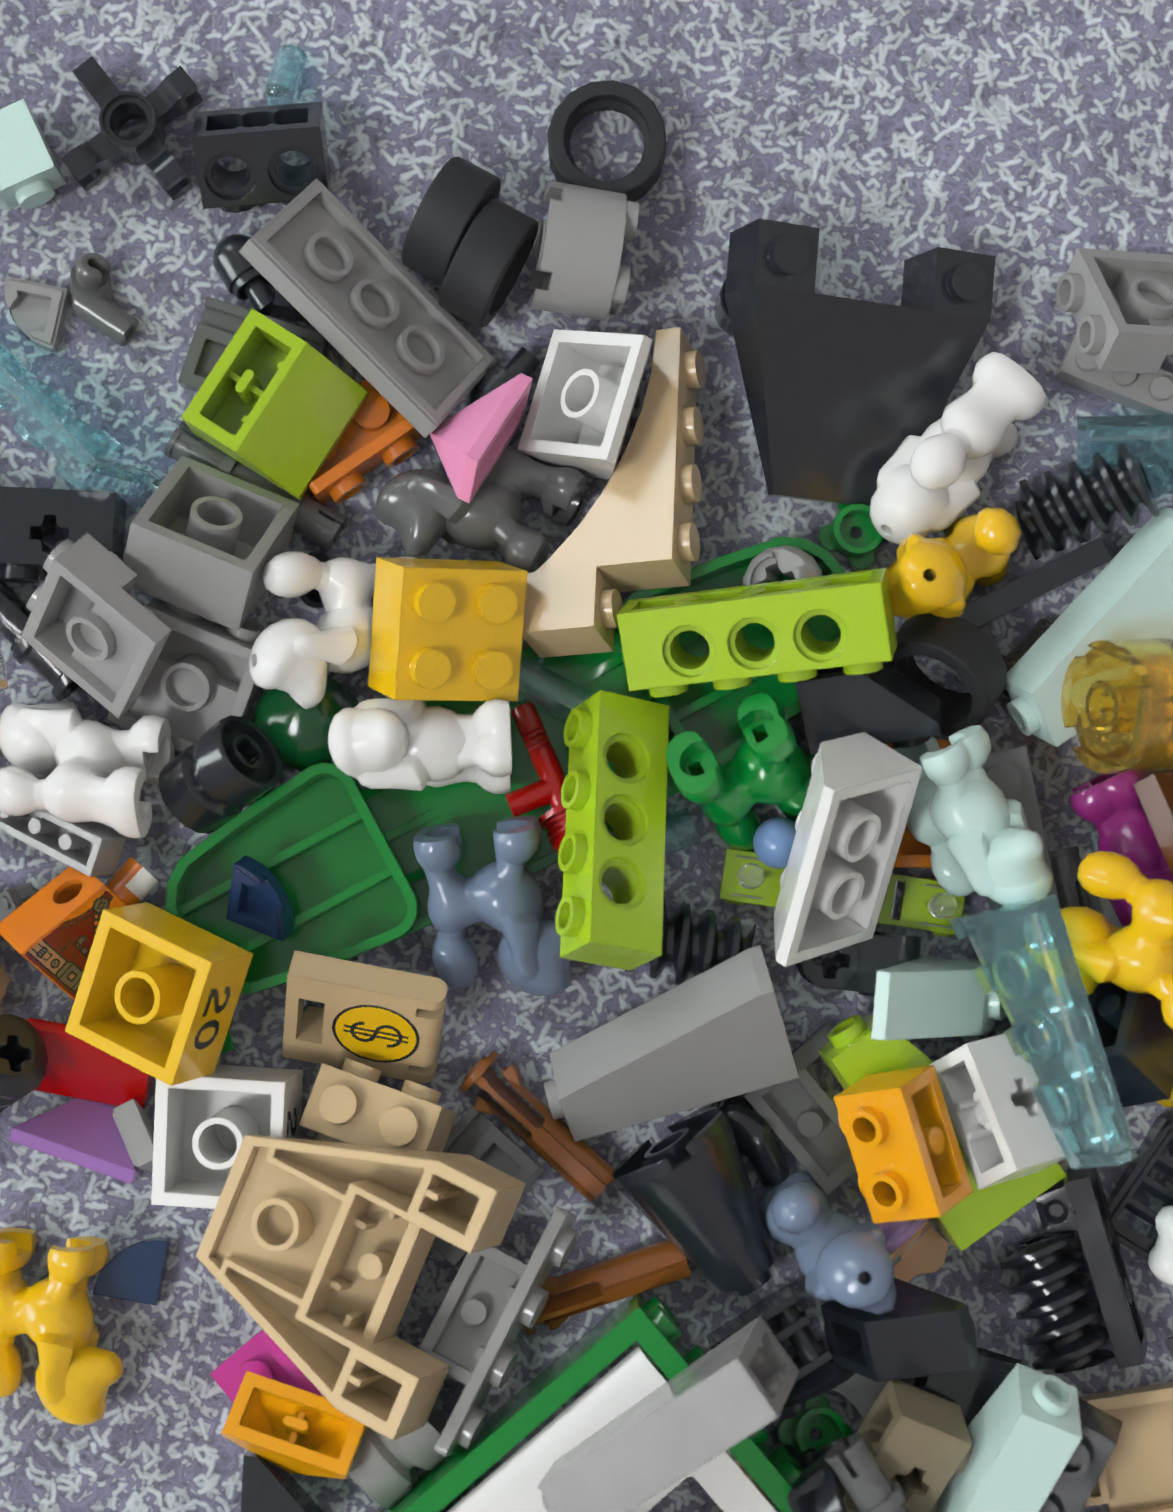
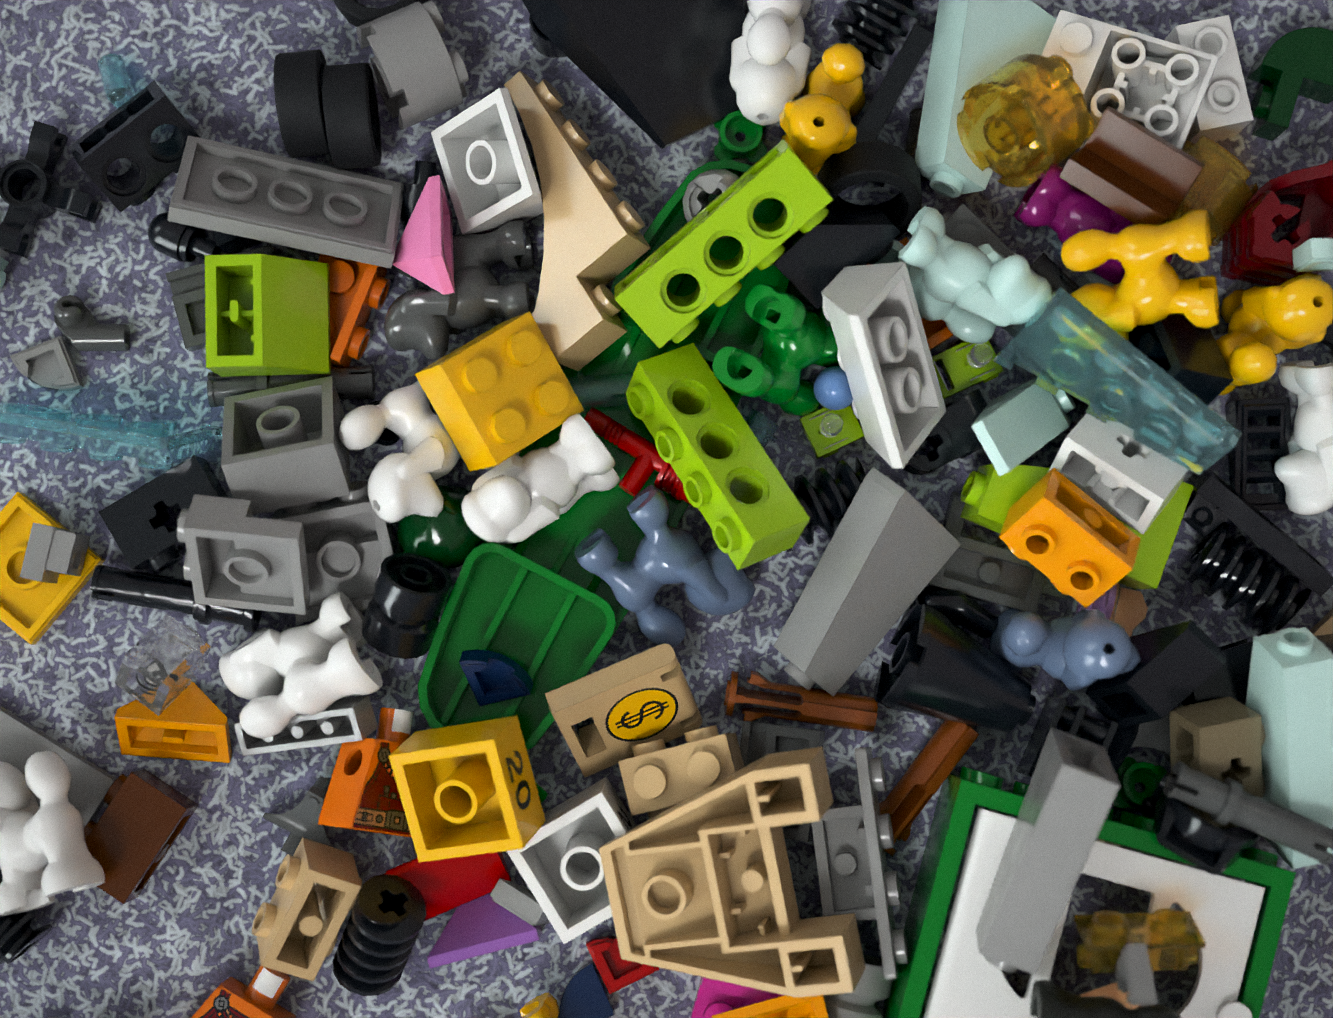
camera: 35 degrees left, 0 degrees up
(183, 1265) = (615, 971): none -> red tile

